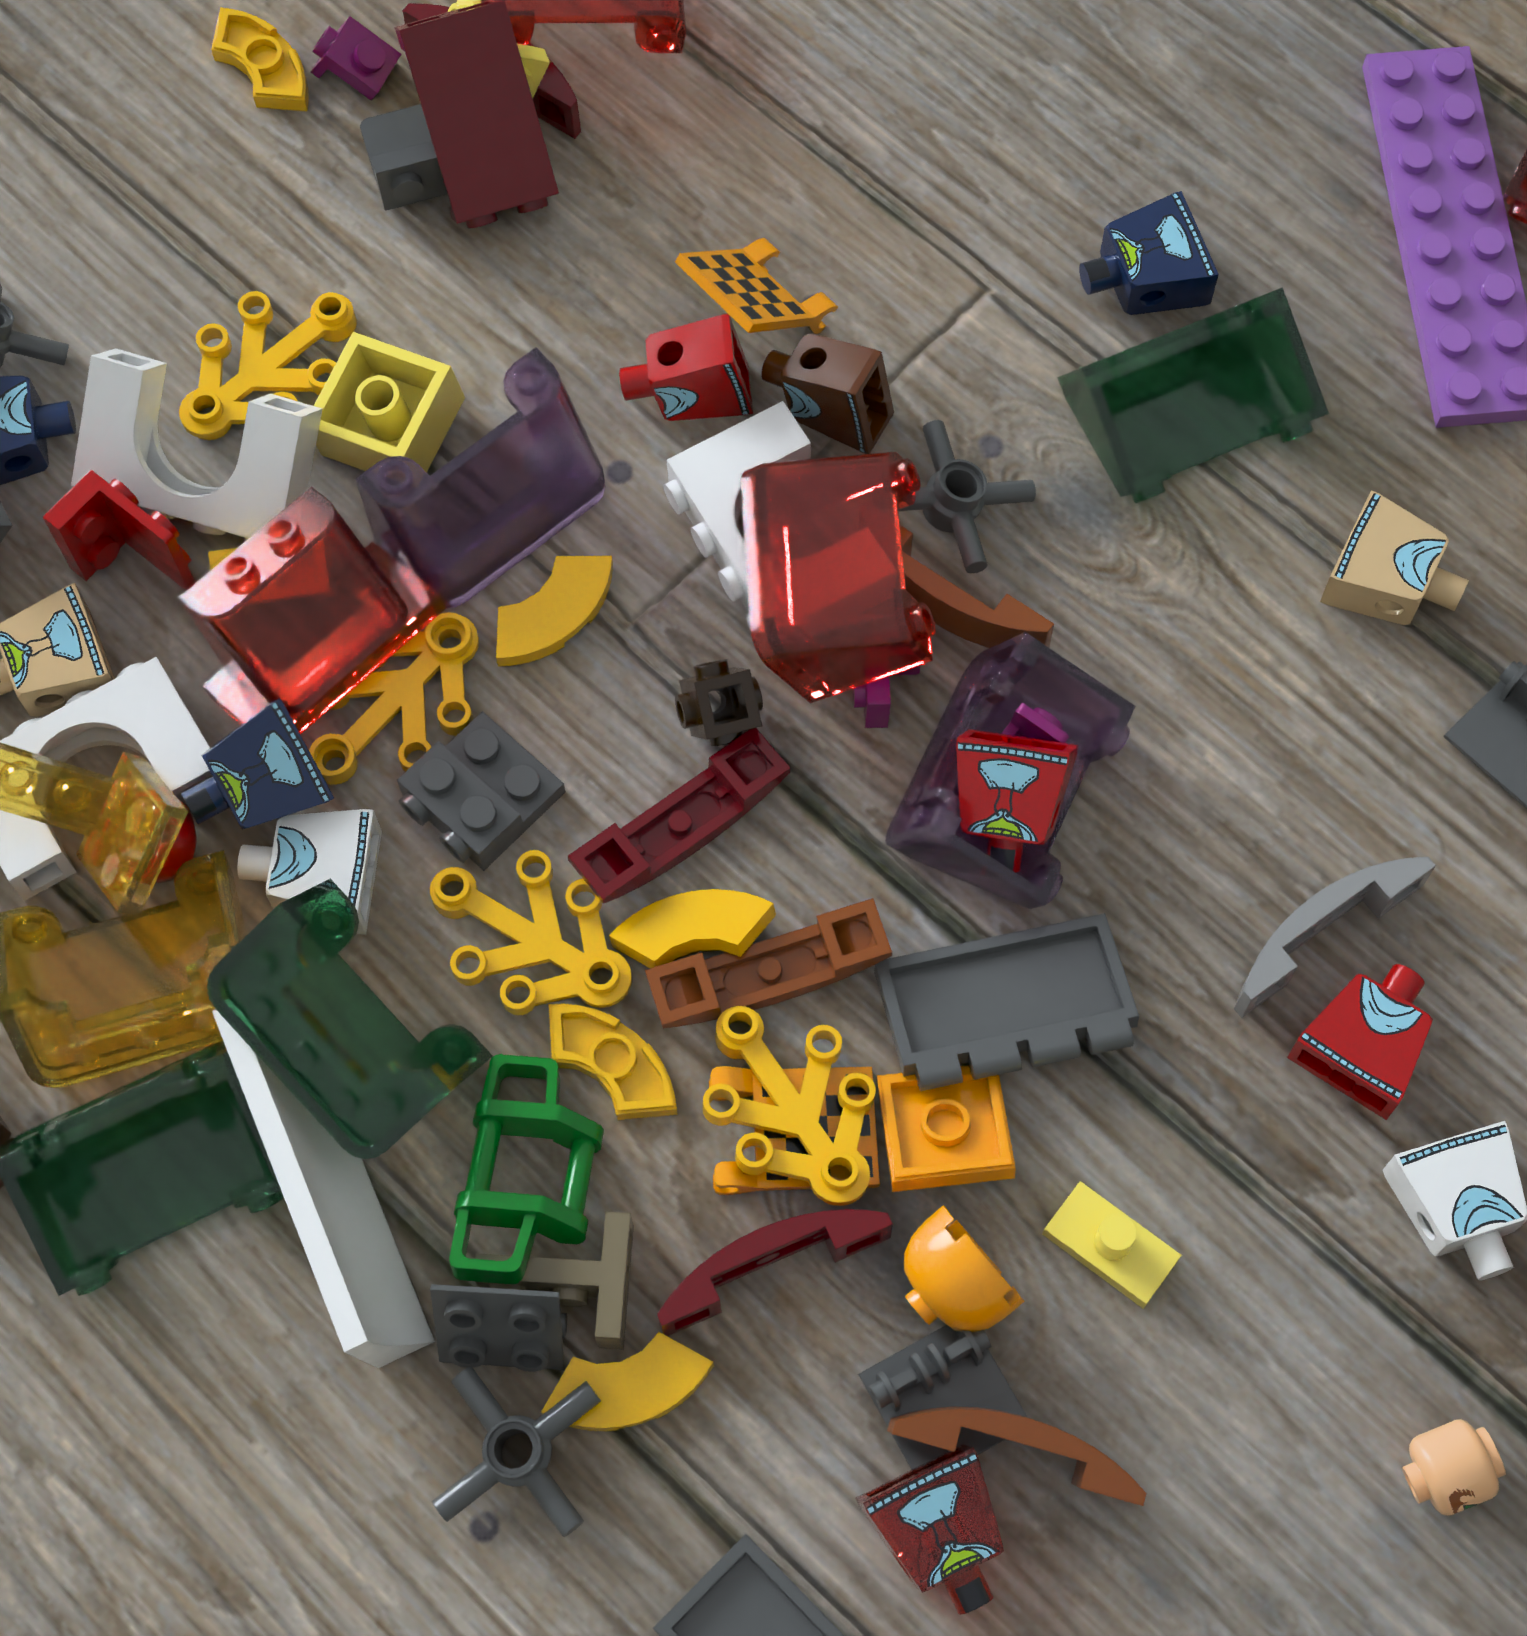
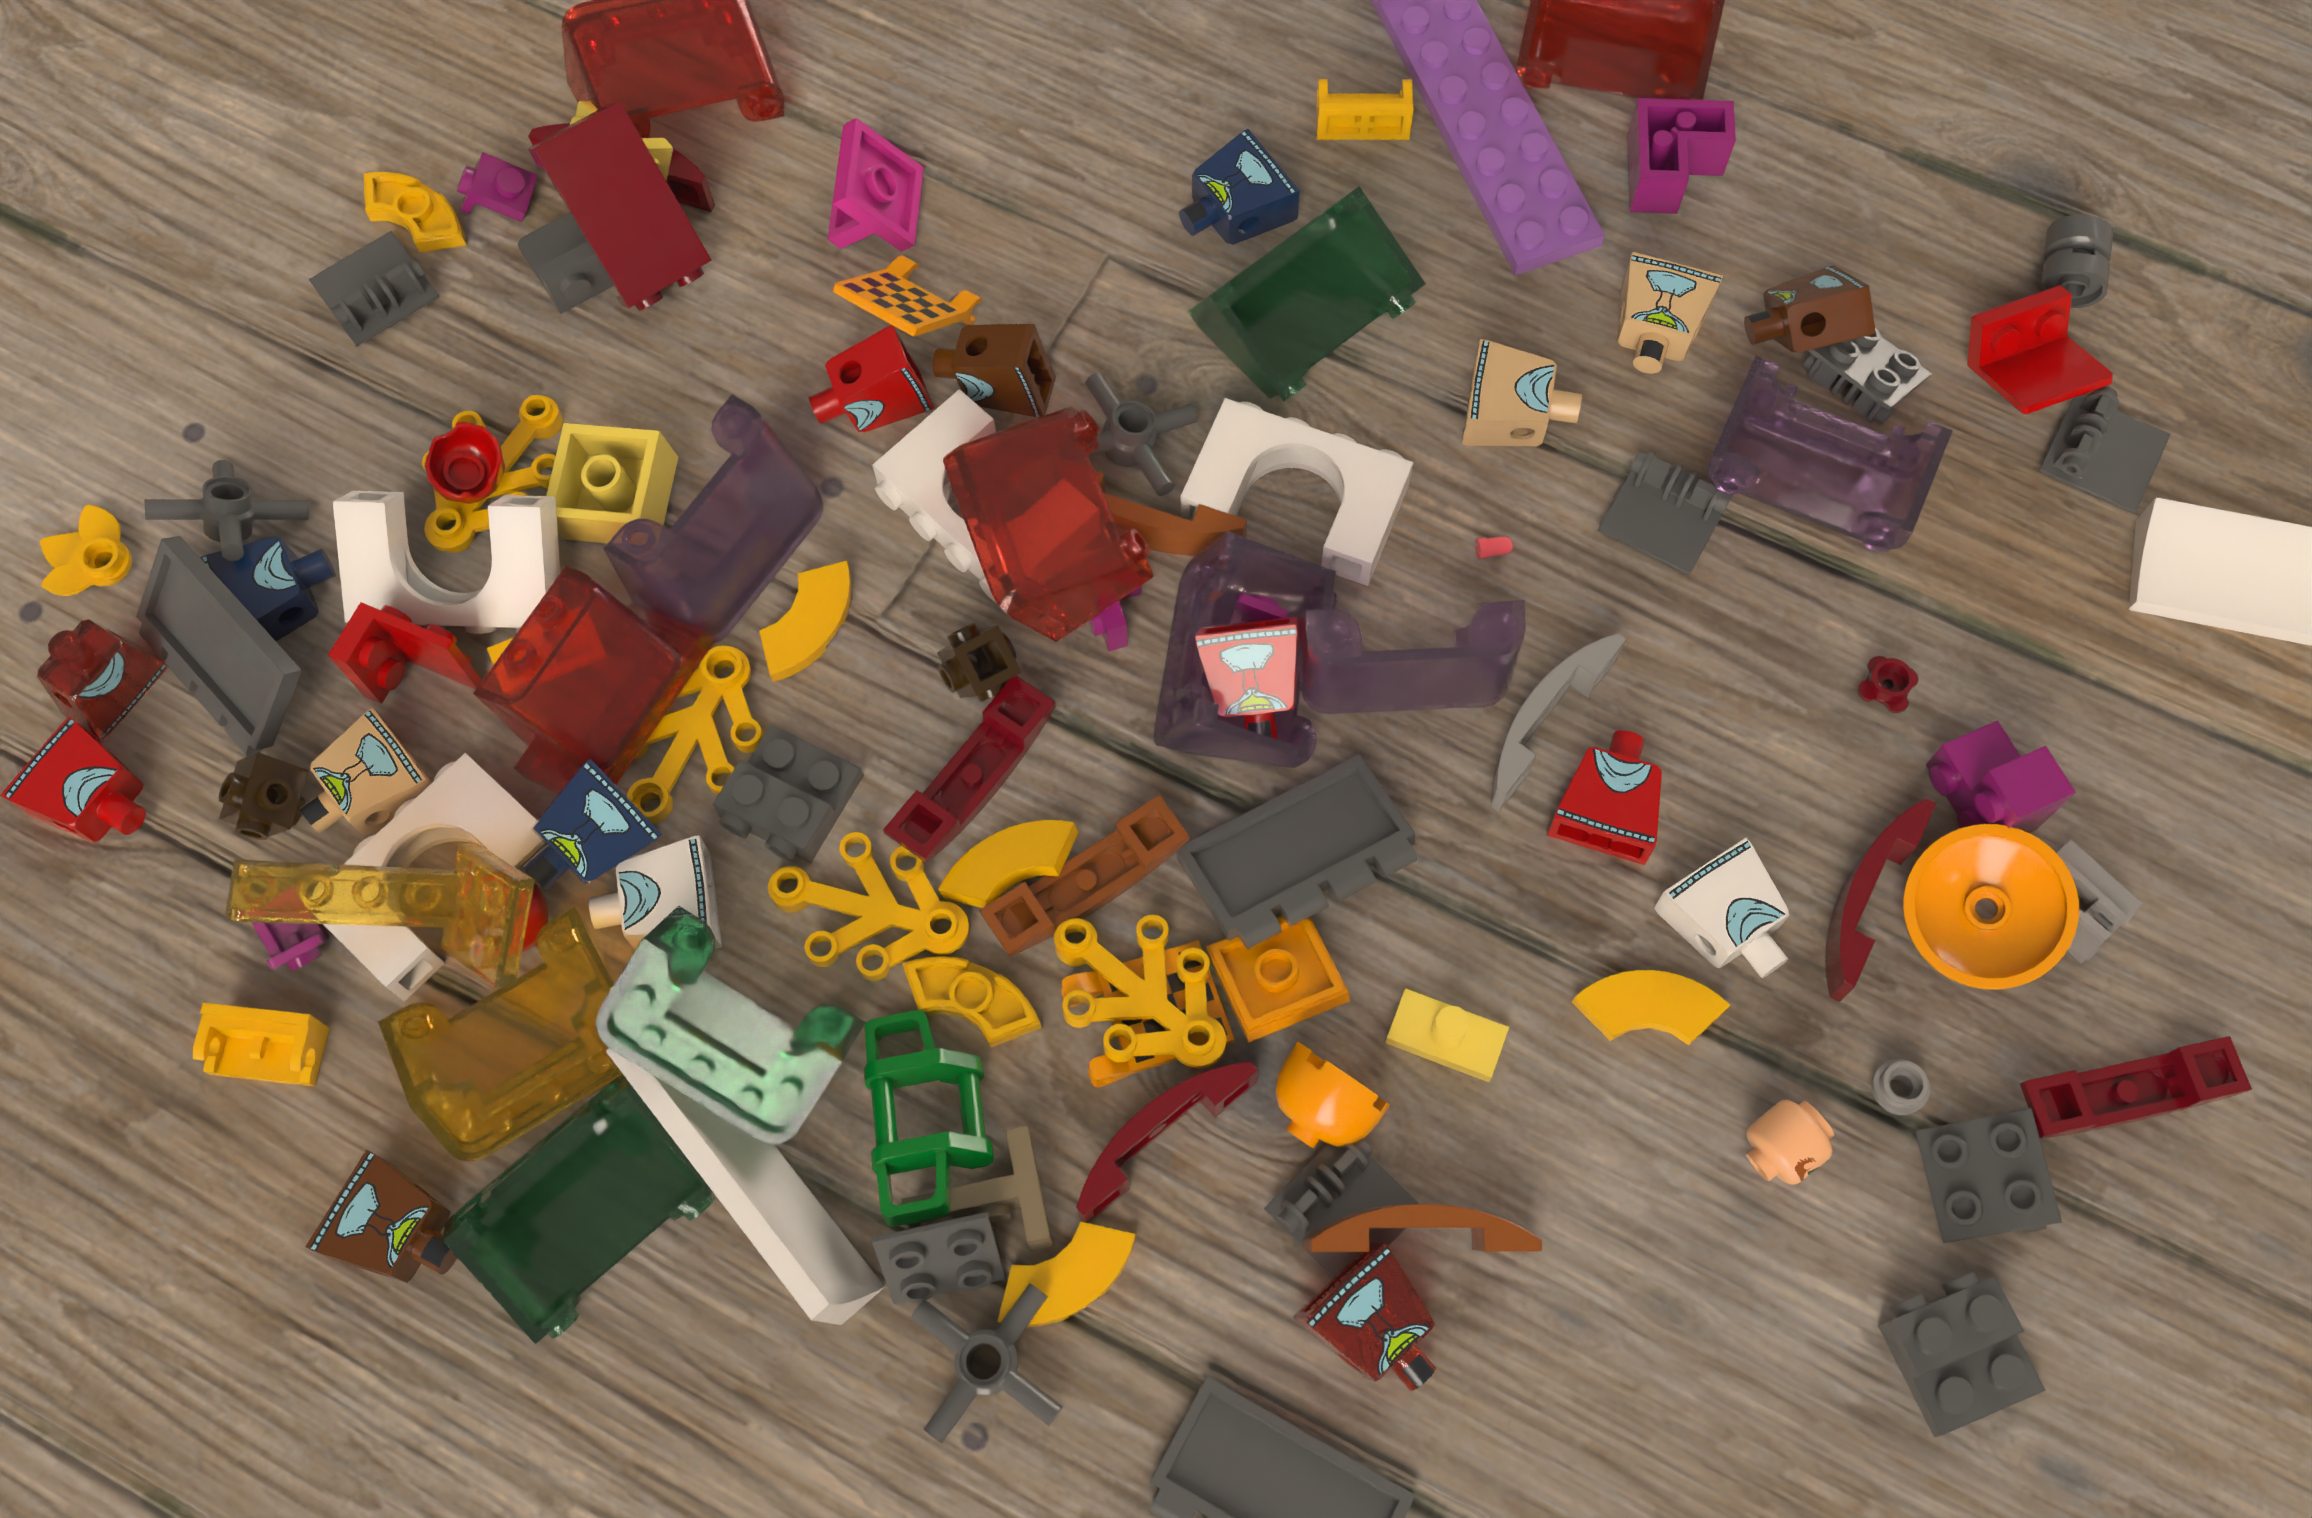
camera: 15 degrees left, 0 degrees up
(198, 134) = (374, 288): none -> dark grey hinge
(239, 348) = (465, 463): none -> red hair
(754, 159) = (874, 190): none -> dark pink bracket
(1087, 541) = (1254, 442): none -> white arch
(1243, 860) = (1471, 674): none -> windscreen
(1318, 205) = (1364, 114): none -> yellow hinge
(1320, 724) = (1494, 546): none -> coral piece
(1346, 1270) = (1650, 1001): none -> yellow tile

